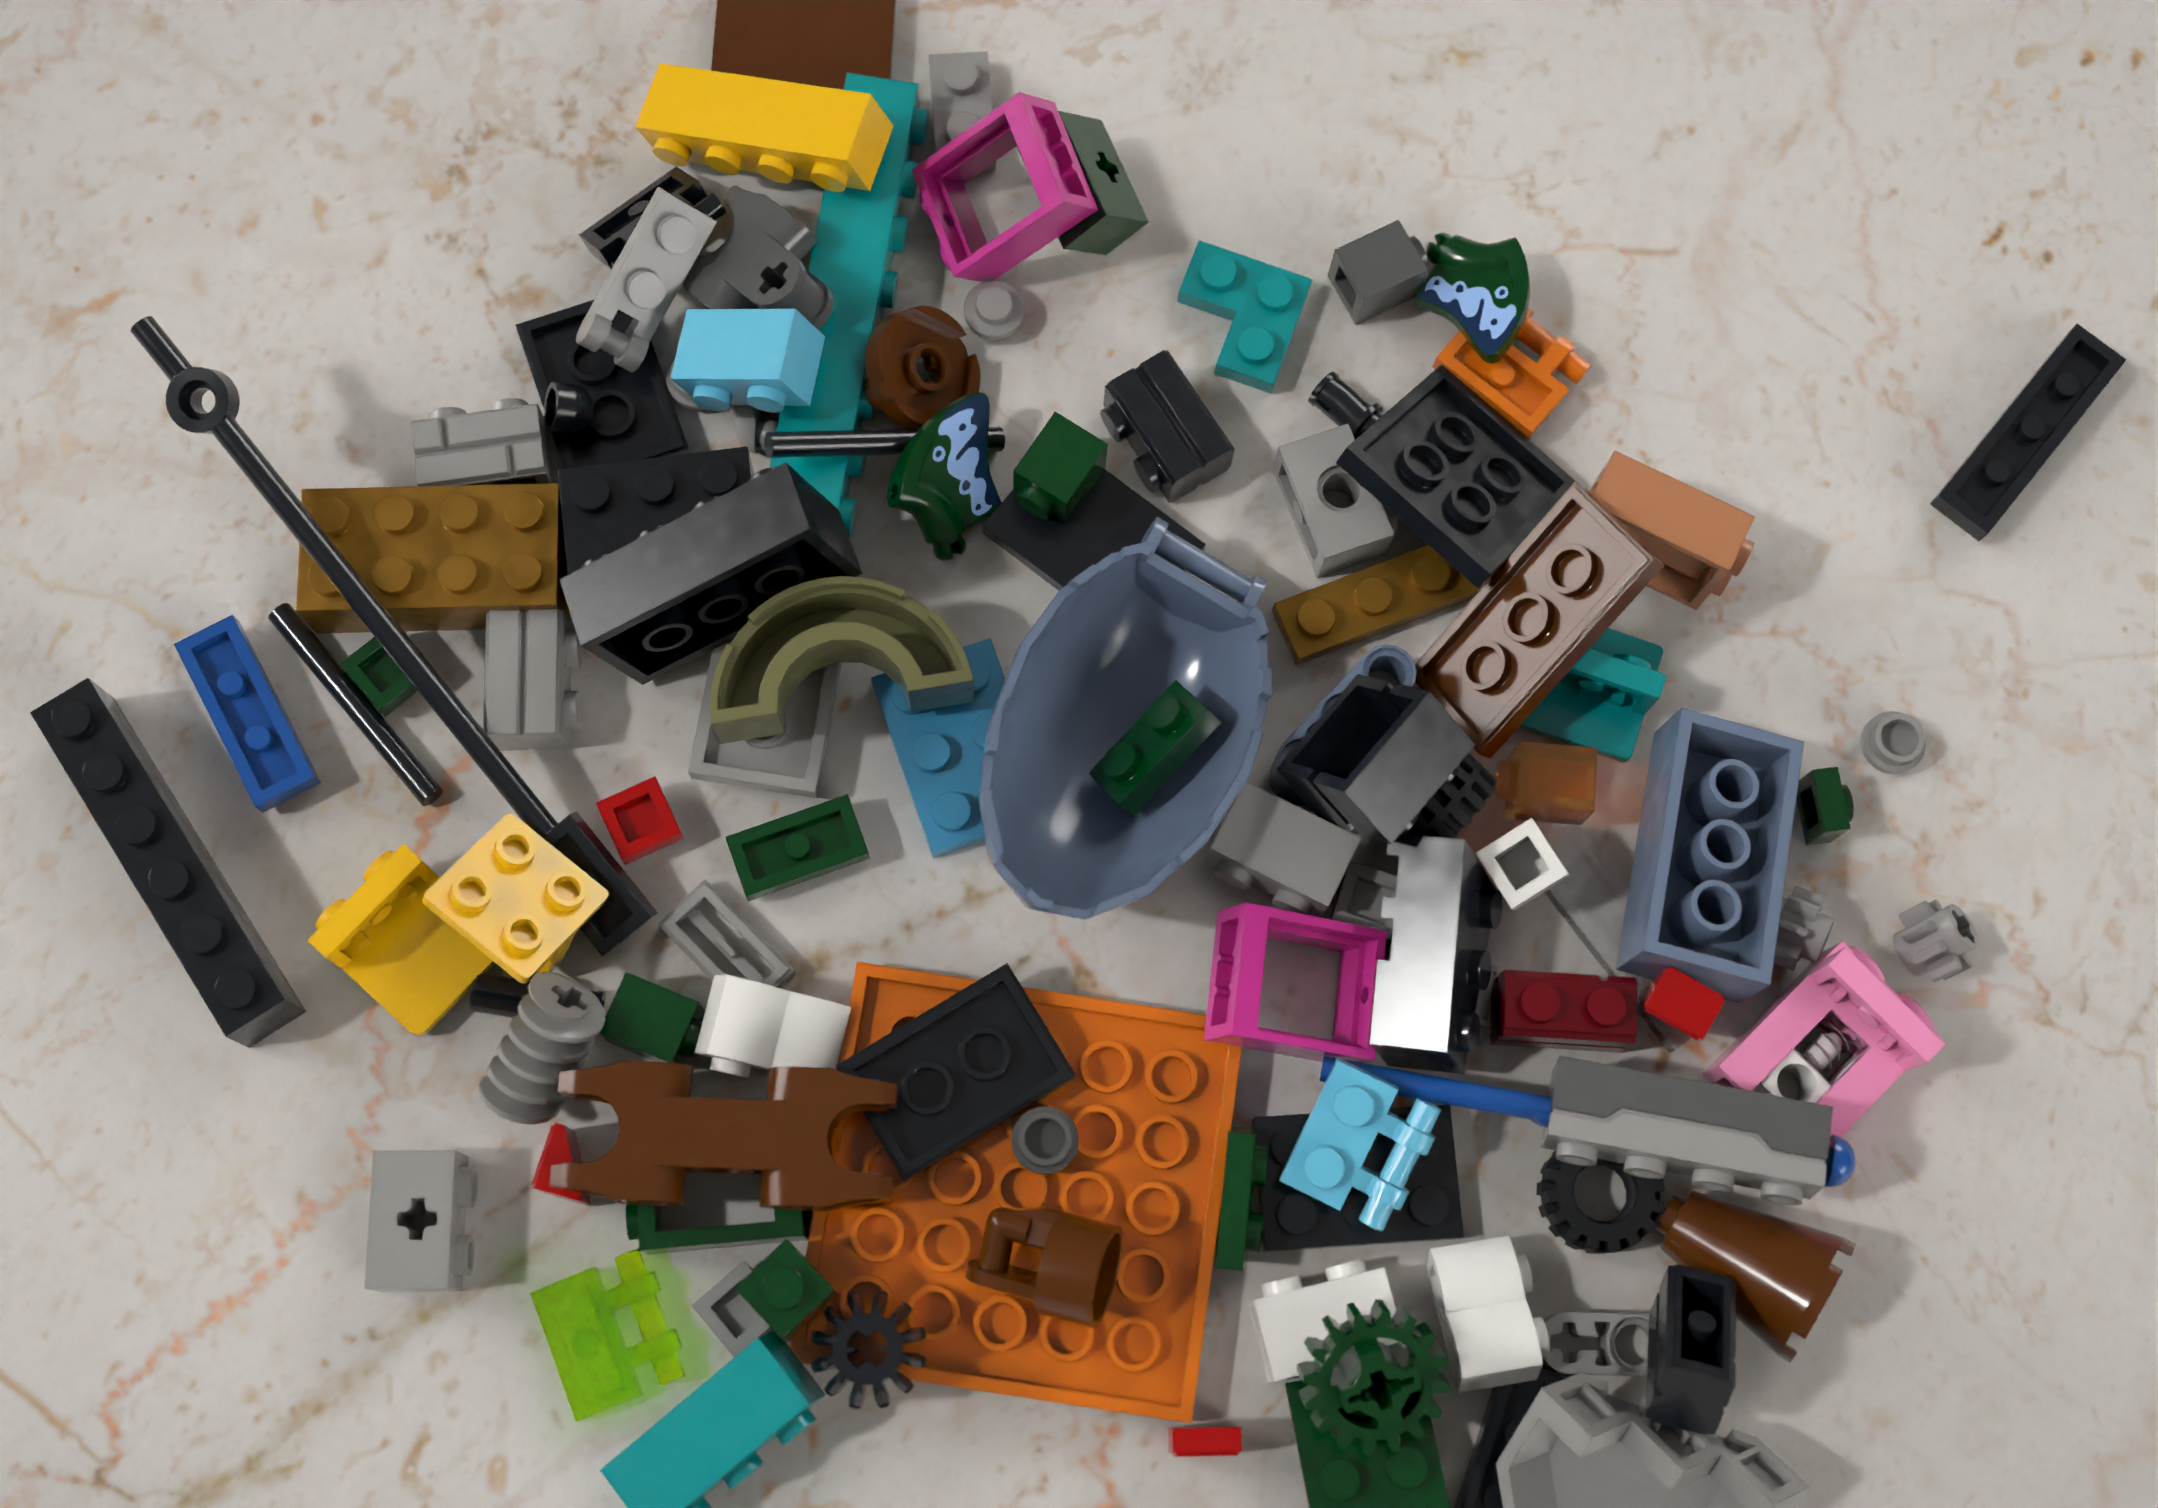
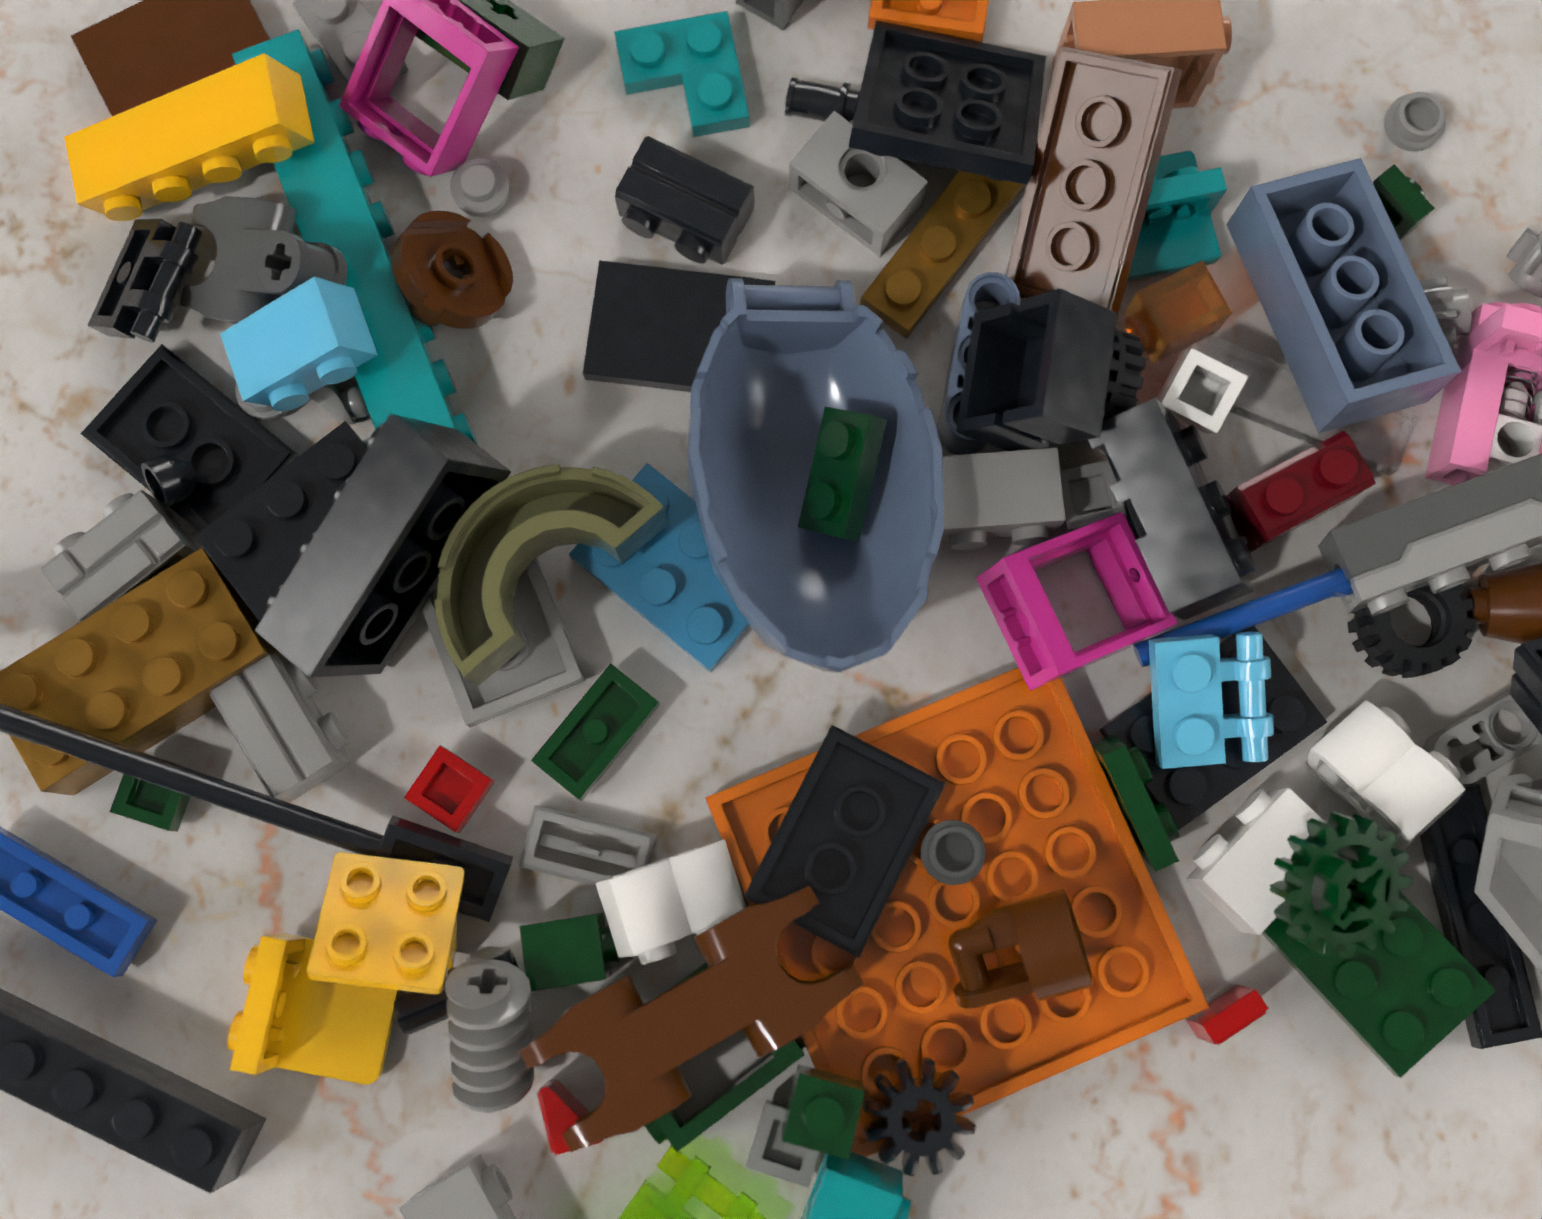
camera: 25 degrees left, 5 degrees up
(355, 704) = (145, 836): black bar -> none
(645, 278) = (167, 327): light grey plate -> none
(852, 442) = (456, 351): black bar -> none
(947, 475) = (526, 347): dark green arm -> none
(1058, 469) = (619, 287): dark green brick -> none
(1682, 1002) = (1393, 428): red slope -> none

